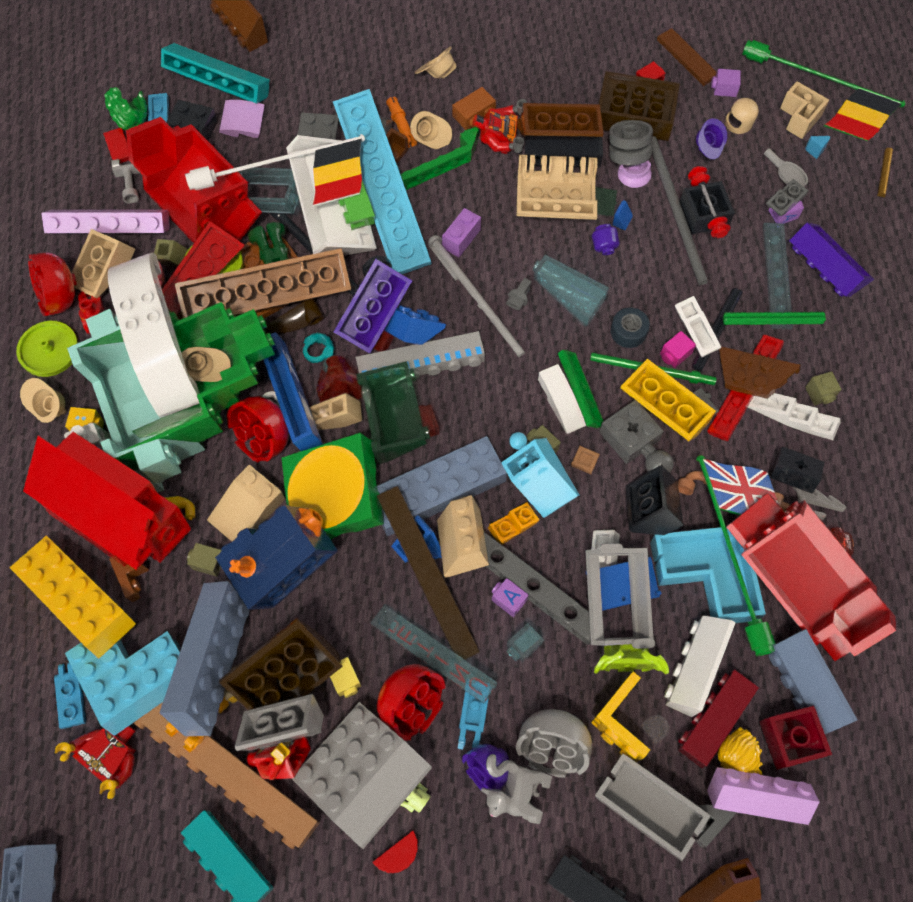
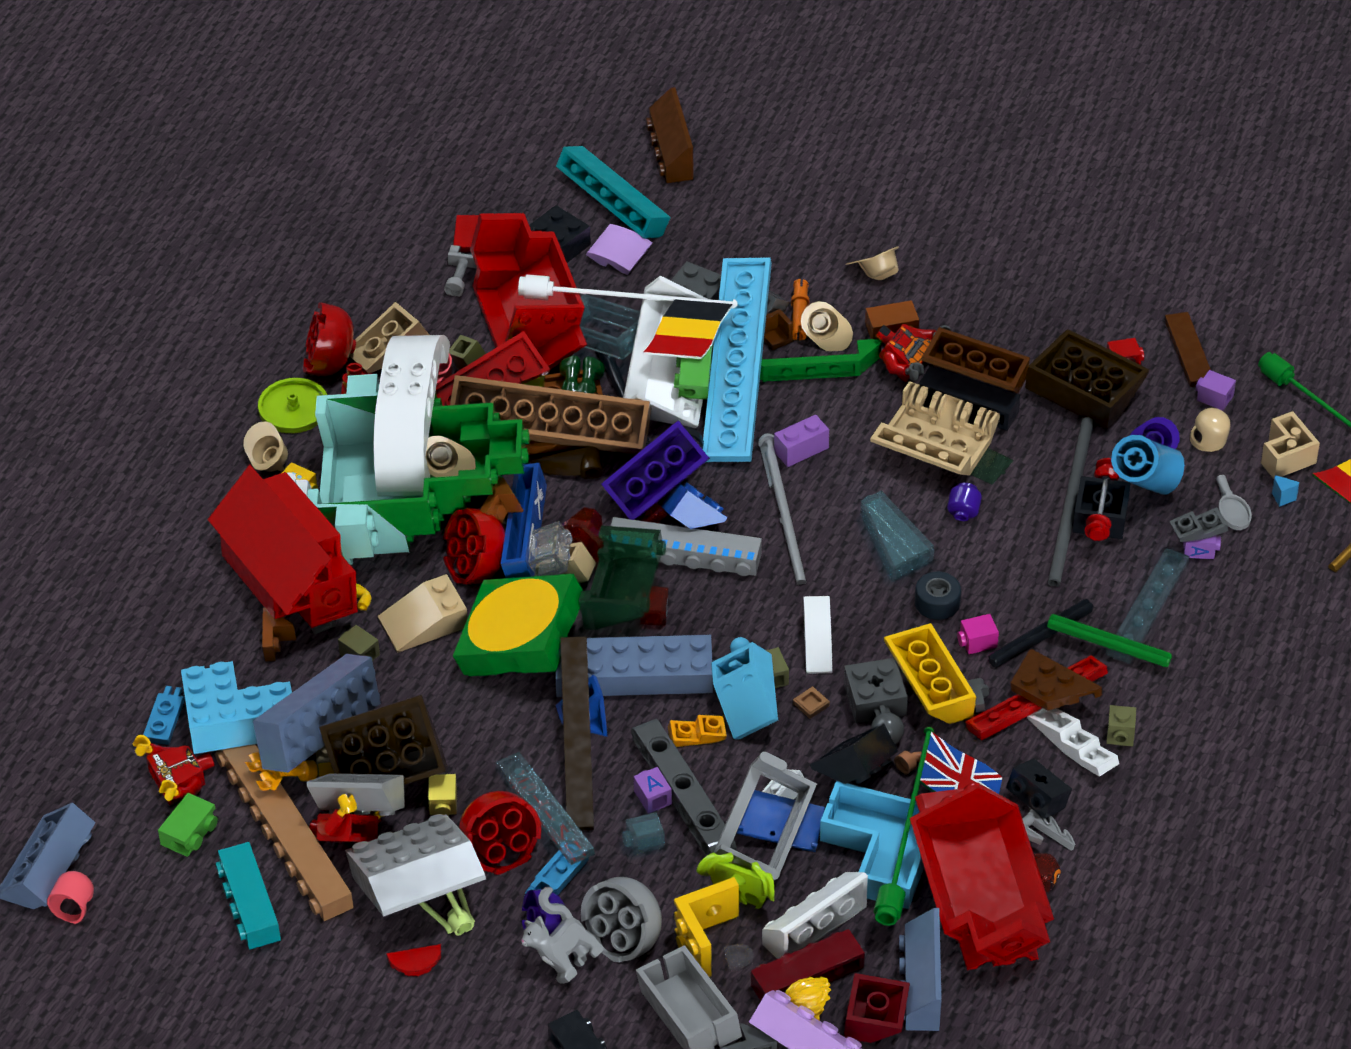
camera: 25 degrees right, 20 degrees down
(73, 597) = (212, 622): yellow brick -> none
(106, 221) = (416, 302): lavender brick -> none
(126, 113) = (487, 197): green hair -> none
(140, 806) = (188, 825): none -> bright green brick
(158, 106) = (533, 206): dark azure hinge -> none
(266, 384) = (501, 501): none -> dark orange slope
(277, 556) = (432, 655): dark blue piece -> none
(318, 338) = (581, 489): teal piece -> none
(324, 411) = (550, 550): none -> clear brick
(462, 537) = (634, 713): tan slope -> none
(518, 296) = (832, 523): dark grey piece -> none
(581, 389) = (845, 631): green tile -> none
(622, 216) = (1000, 485): blue slope -> none
(630, 142) = (1051, 412): dark grey wheel -> none
(635, 175) = (1045, 446): lavender piece -> none
(693, 376) = (981, 667): green bar -> none
(697, 326) = (1014, 617): white slope -> none
(729, 161) = (1148, 464): none -> dark azure brick
(830, 259) = (1220, 608): dark purple slope -> none

